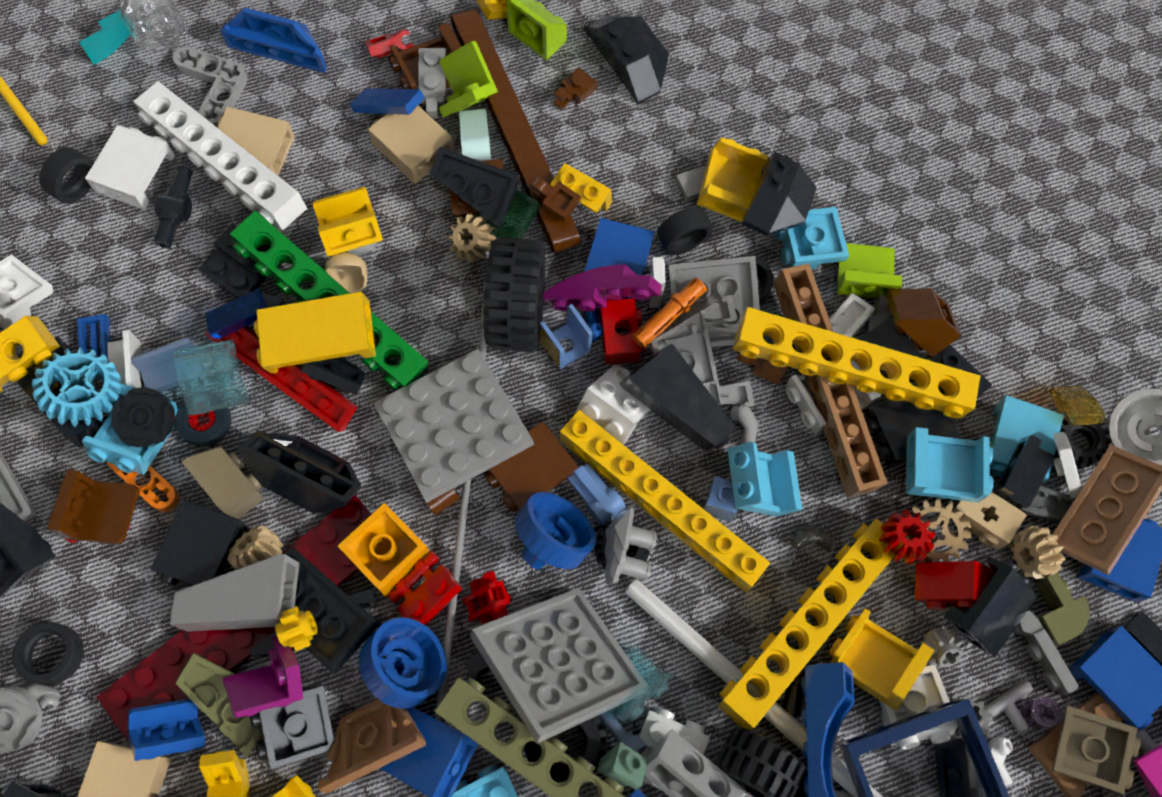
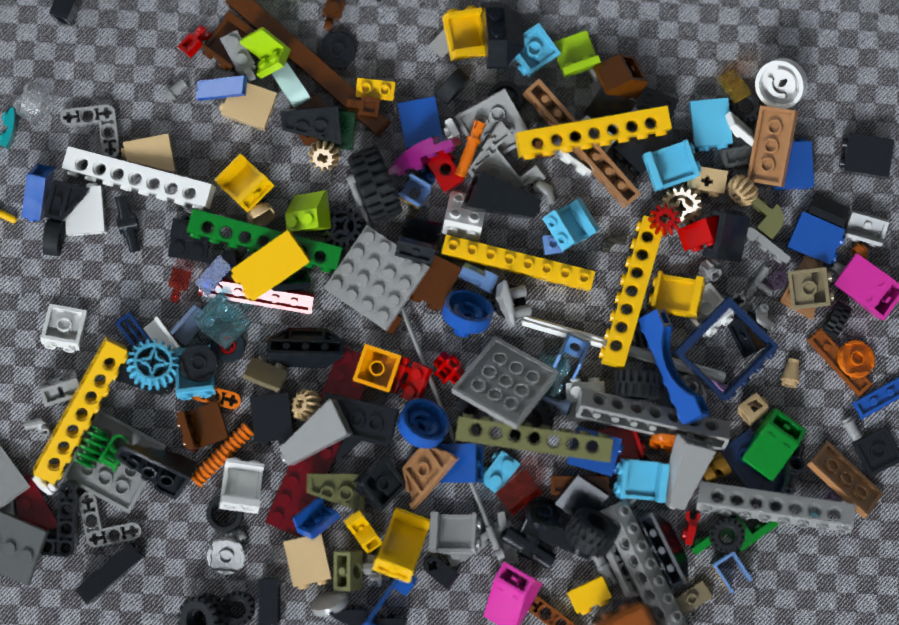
camera: 25 degrees left, 15 degrees up
(87, 116) = (37, 192): none -> slope
(92, 623) = (241, 485): none -> white panel
(96, 566) = (224, 452): none -> orange piece
(106, 133) = (63, 199): none -> black wing
(191, 307) = (179, 282): none -> clear red plate
(267, 686) = (359, 469): magenta bracket -> none
(273, 38) = (121, 74): blue wedge -> none
(296, 628) = (359, 434): yellow gear -> none
(332, 86) = (175, 90): none -> light grey pin
(408, 299) = (308, 213): none -> lime slope
(444, 337) = (347, 222): none -> black gear
(538, 400) = (419, 240): none -> black panel
(558, 132) = (337, 50): none -> black tile
(624, 766) = (565, 418): sand green bracket -> none
(690, 676) = (581, 353): none -> medium blue piece
(851, 316) = (577, 96): white plate -> none
(1025, 472) = (717, 146): black panel -> none

